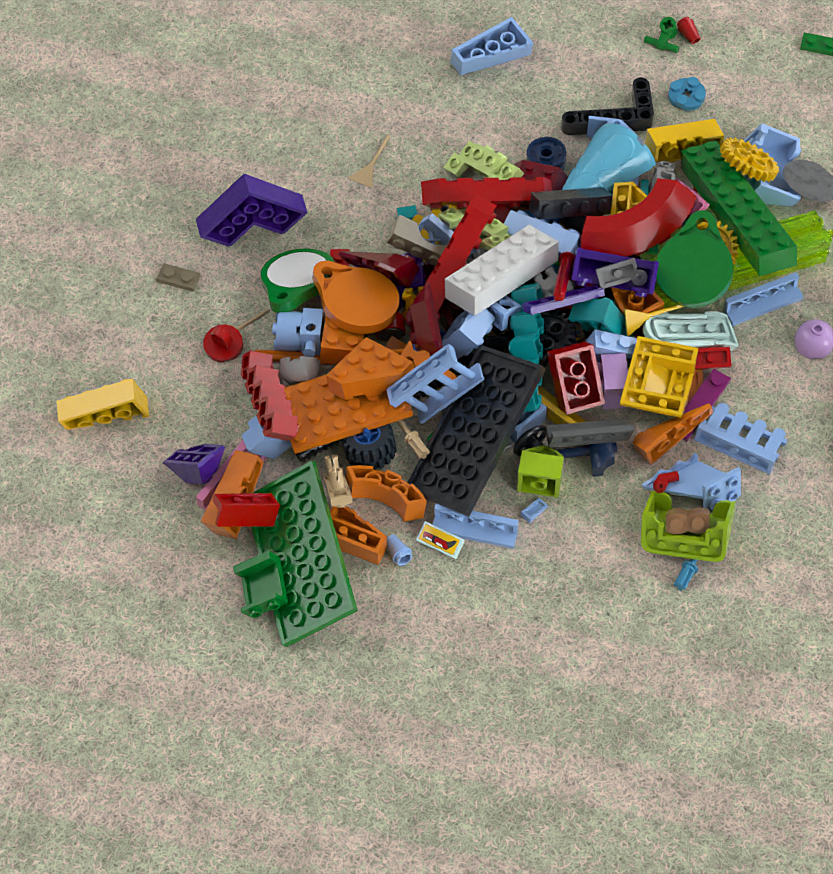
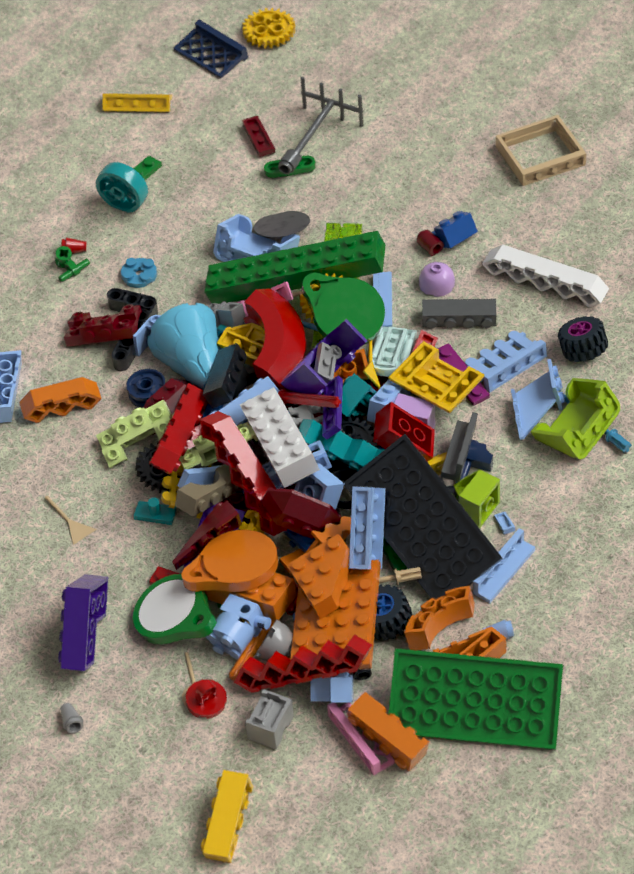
camera: 65 degrees left, 10 degrees down
(160, 252) = (71, 718): none -> light grey cone
(178, 277) = (107, 714): dark tan plate -> none
(196, 463) = (335, 752): dark purple wedge -> none
(211, 397) = (269, 719): none -> light grey piece
(245, 509) = (418, 716): red panel -> none
(262, 584) = (491, 742): green panel -> none
(336, 483) = (431, 641): tan plate -> none
(440, 540) = (505, 595): slope -> none
(497, 97) = (59, 398): none -> orange brick
(594, 93) = (87, 329): none -> dark red bracket
(662, 481) = (527, 419): red arm -> none
(664, 436) = (486, 403): orange wedge -> none
(669, 140) = (192, 282): yellow wedge -> none
(681, 520) = (575, 413): medium nougat brick -> none
(749, 159) = (251, 244): yellow gear -> none
(772, 31) = (121, 187): none -> teal piece
(779, 374) = (458, 313): none -> dark grey brick
(798, 495) = (583, 339): none -> black wheel

